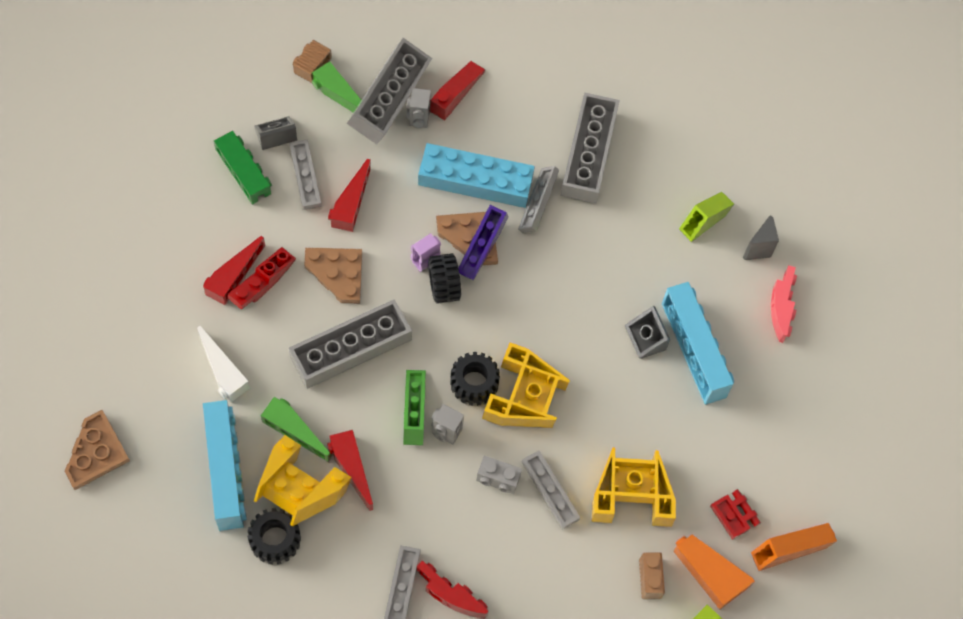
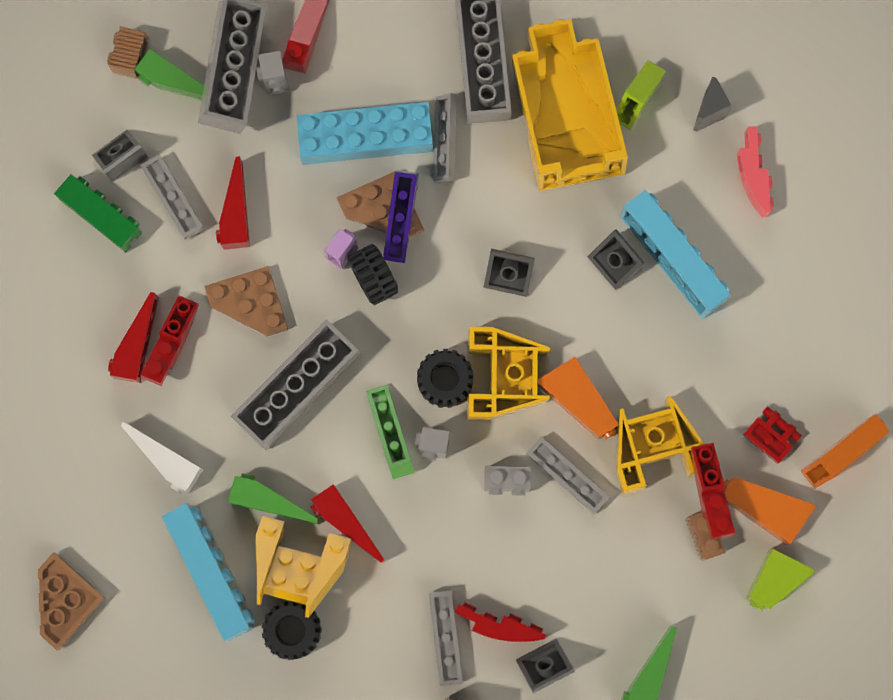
camera: 10 degrees left, 15 degrees up
(556, 314) = (509, 272): none -> dark grey slope
(581, 431) = (578, 397): none -> orange slope
(645, 208) = (568, 108): none -> yellow panel
(668, 534) = (711, 491): none -> red slope

